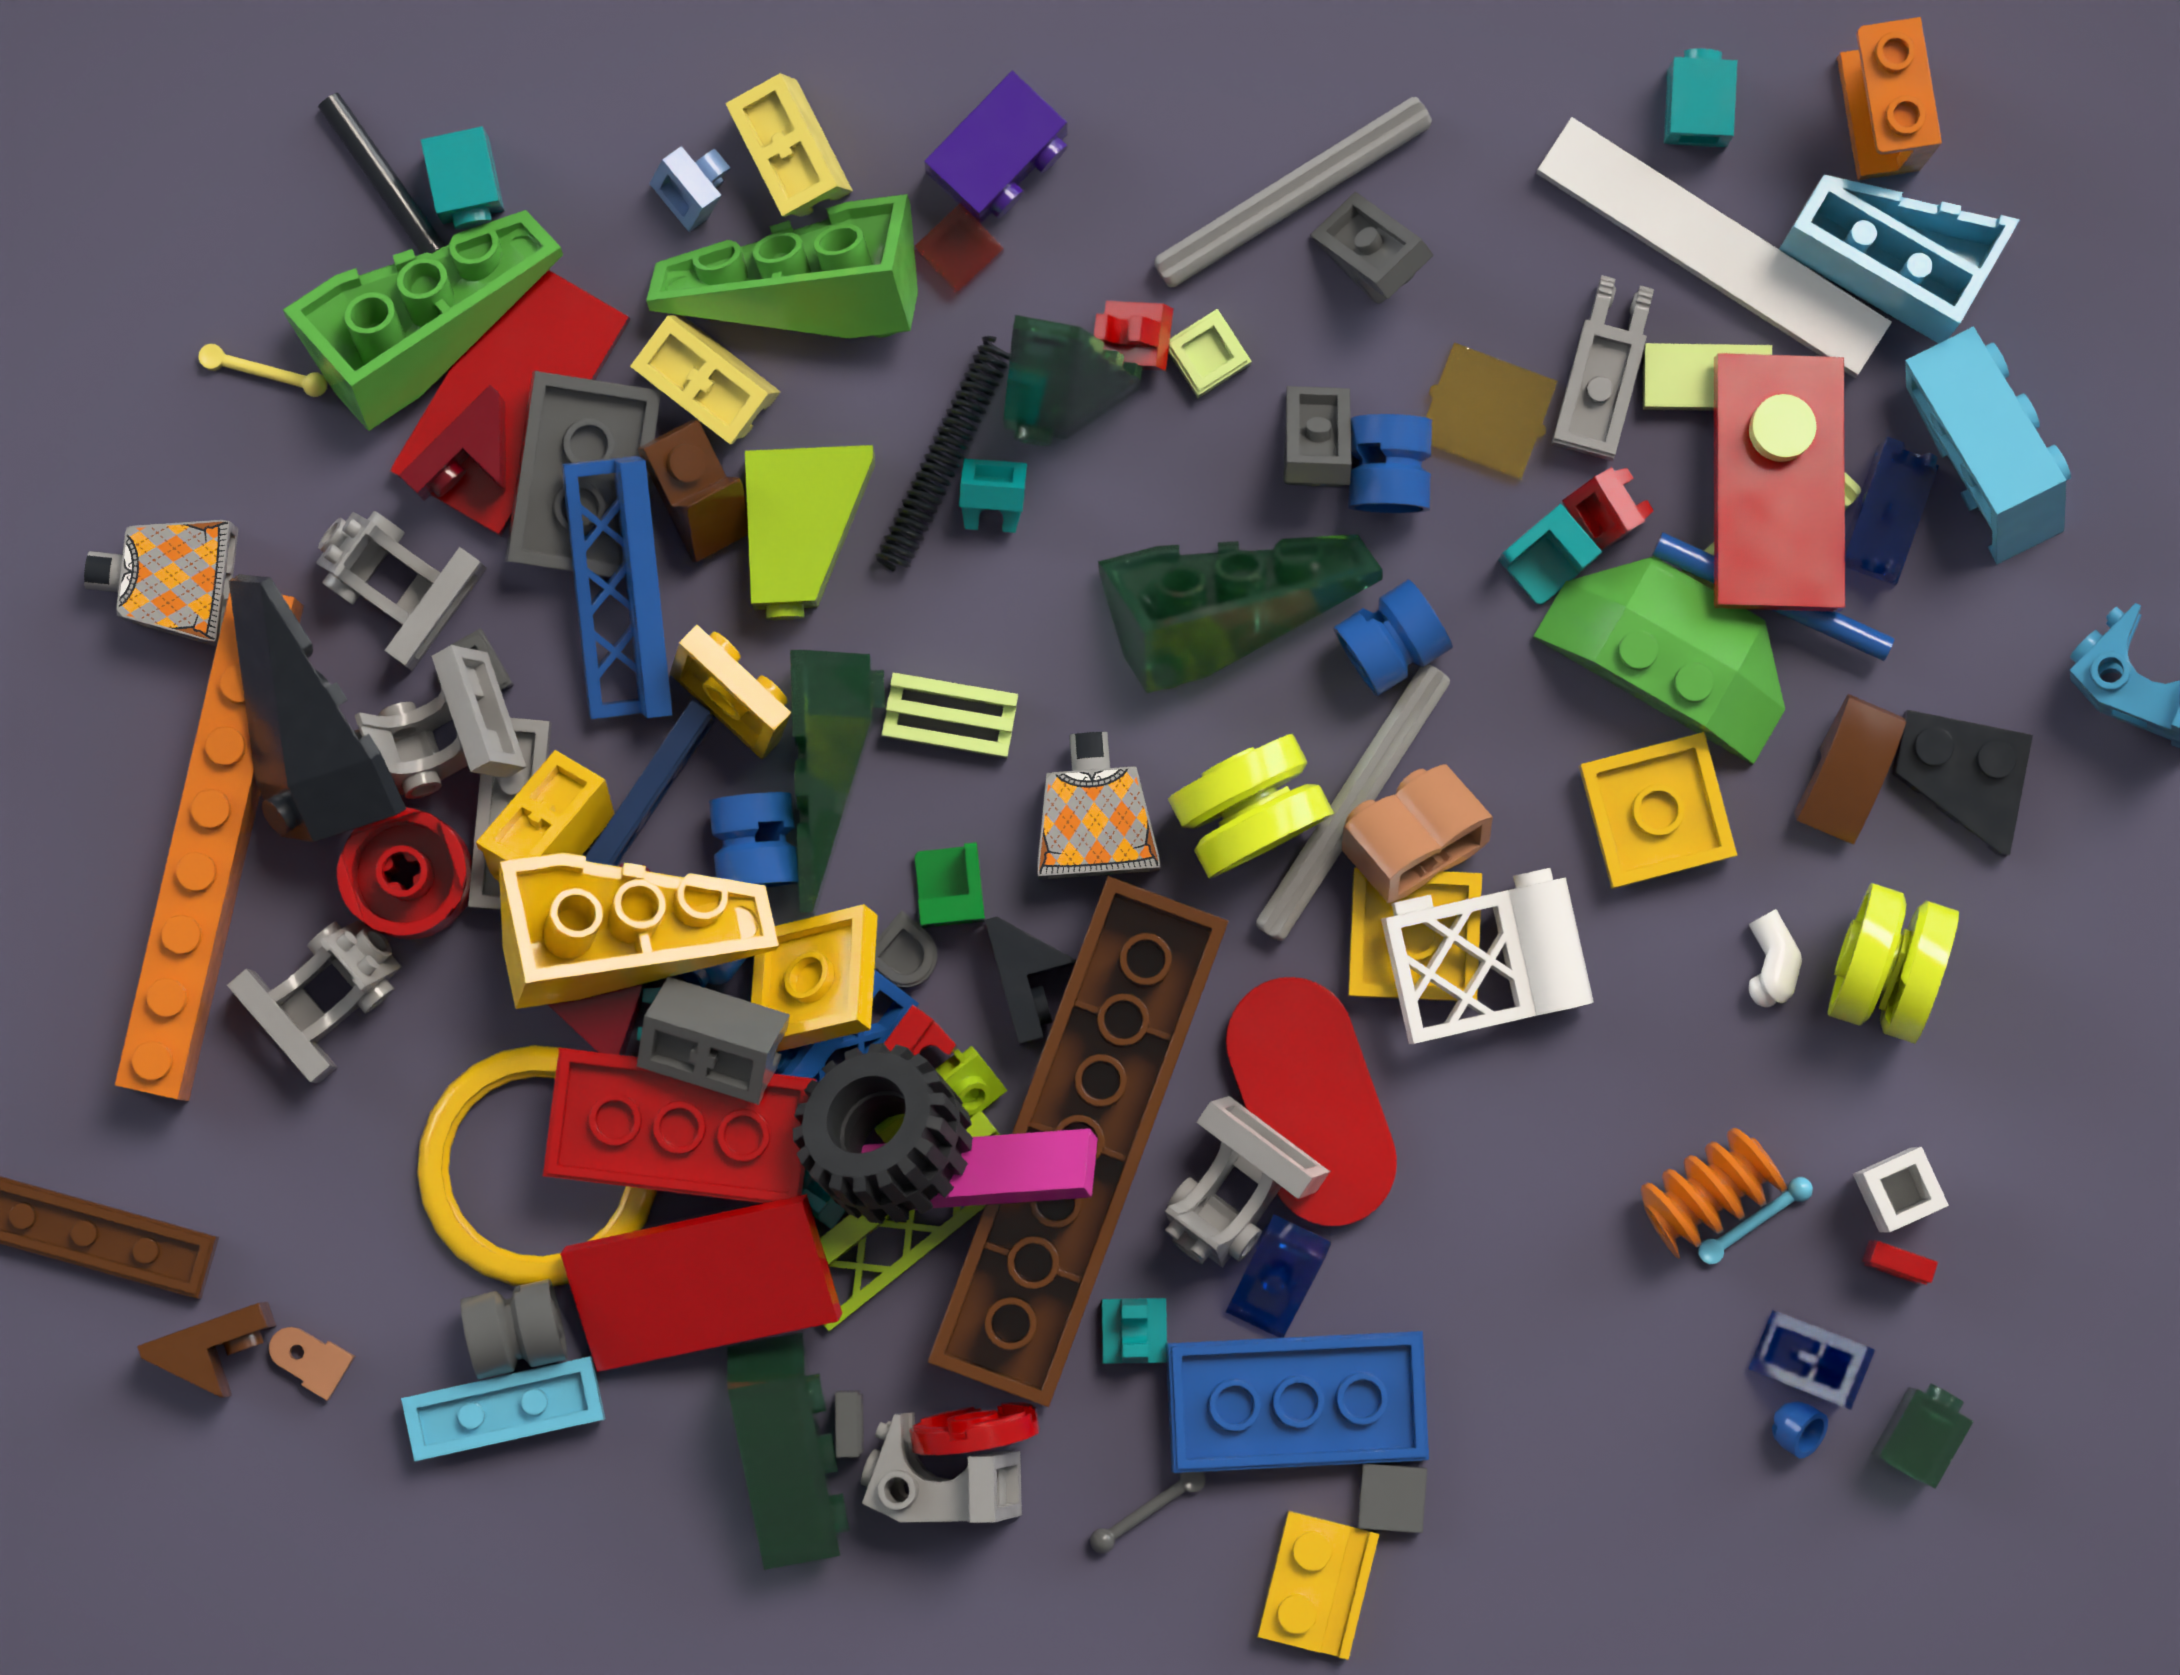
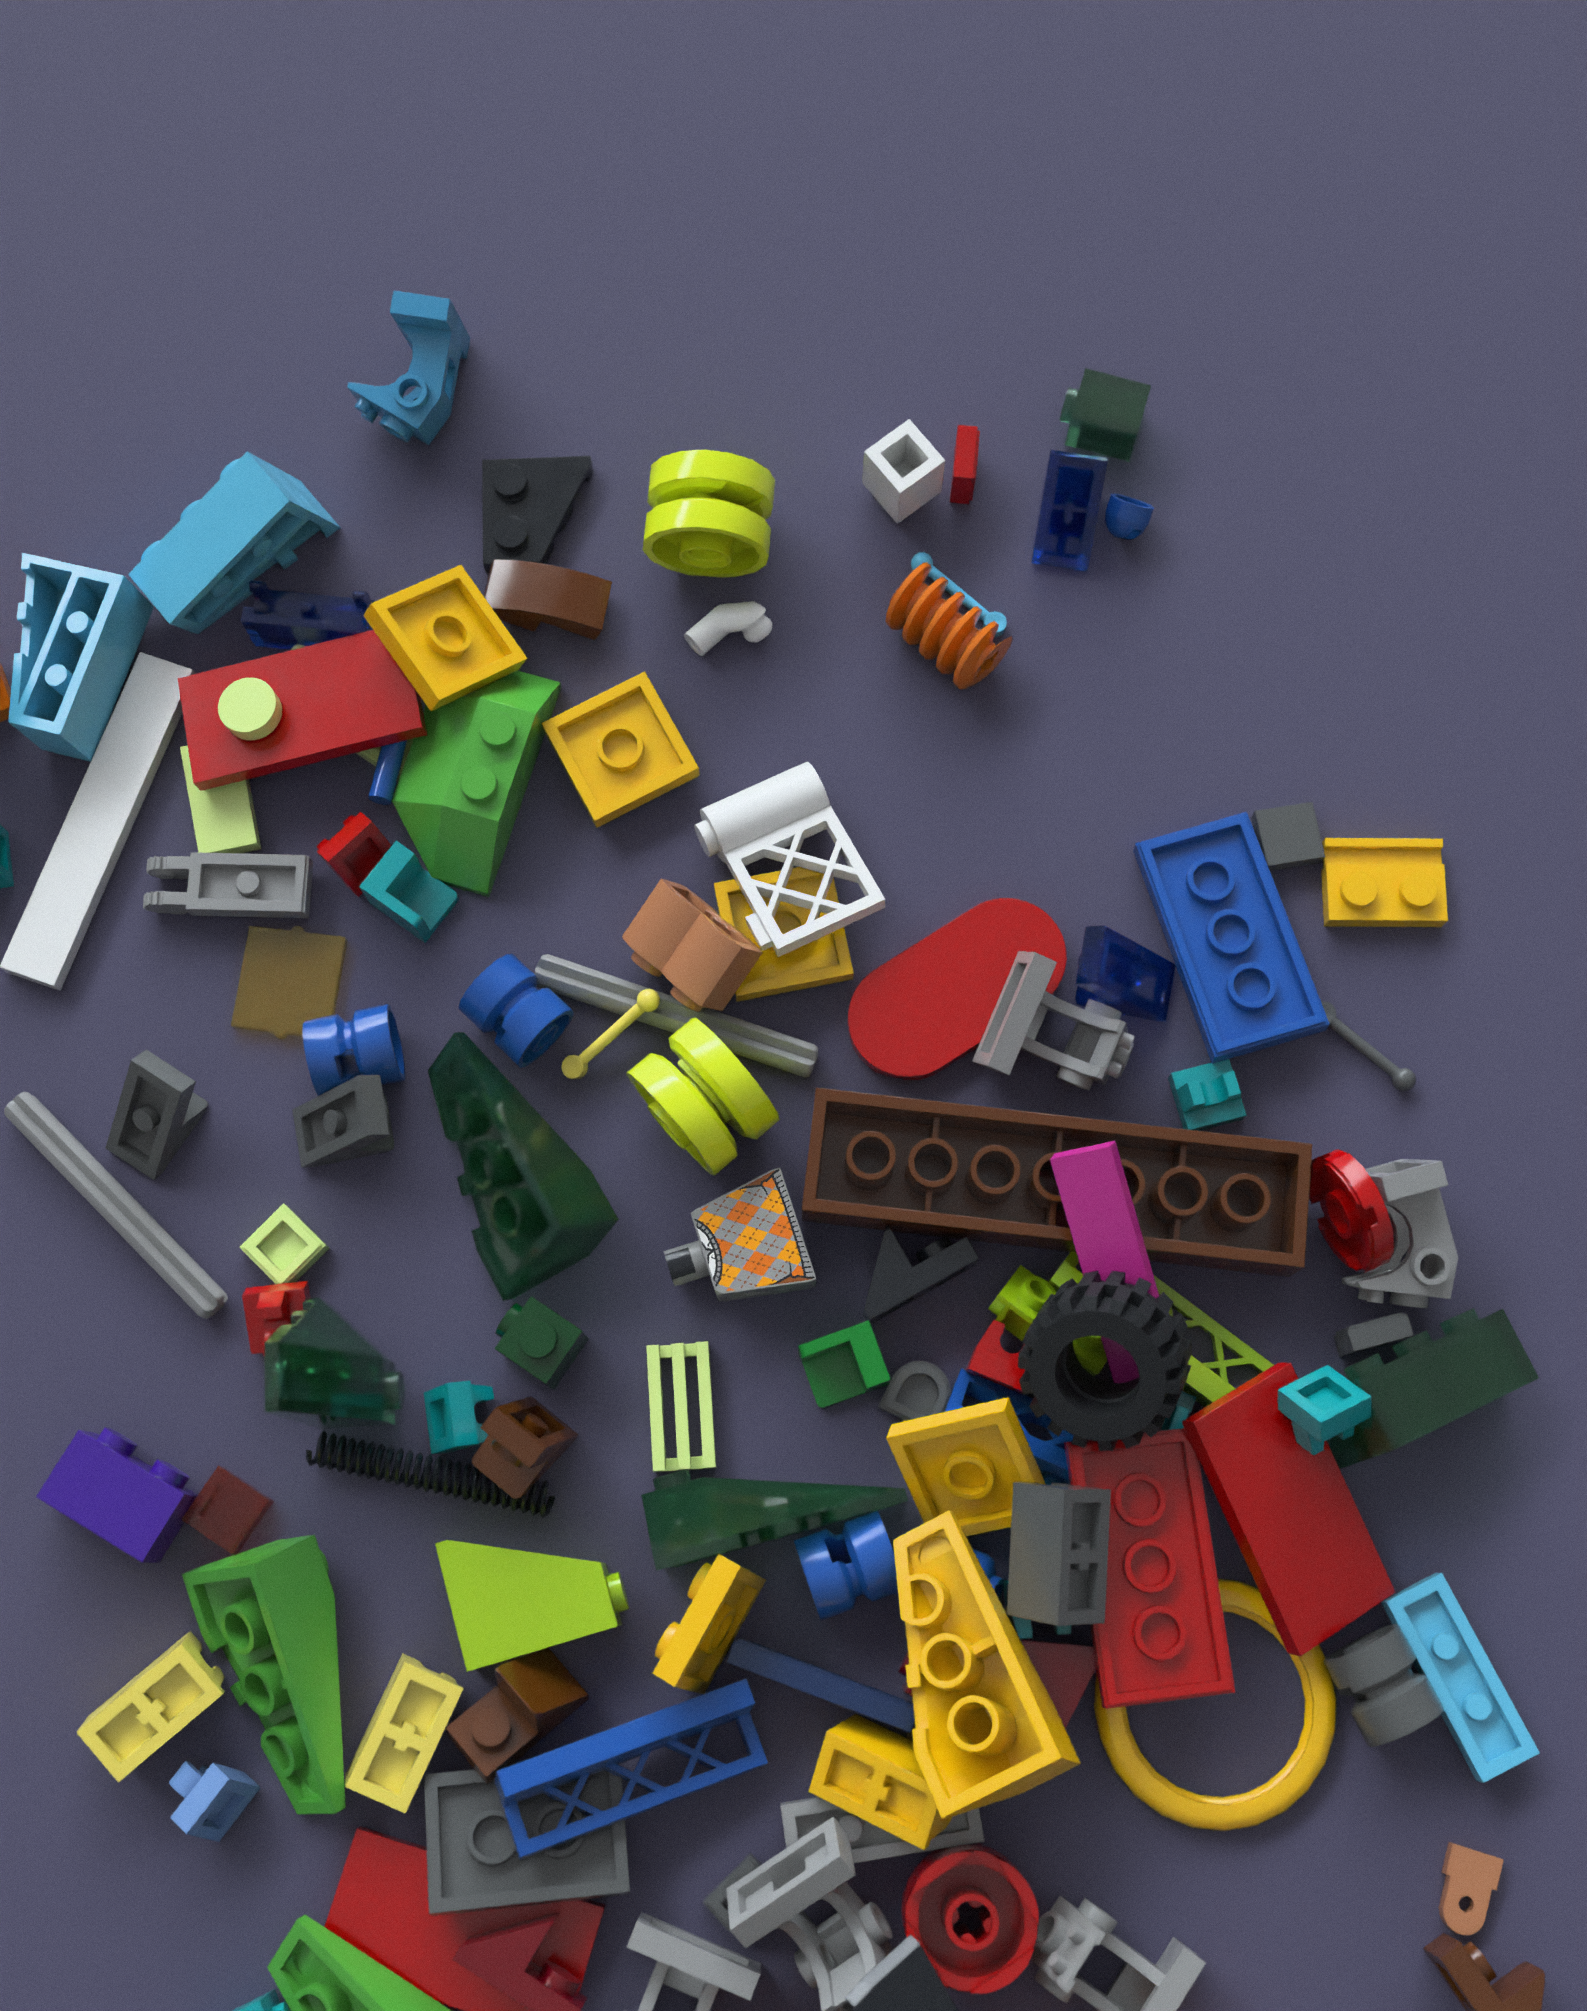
camera: 100 degrees left, 10 degrees down
(786, 1337) = (1323, 1407): none -> teal tile
(948, 550) = (521, 1445): none -> reddish brown slope
(1046, 588) = (539, 1341): none -> dark green brick
(1325, 688) = (577, 1066): none -> light yellow hinge
(1814, 649) = (445, 637): none -> yellow plate

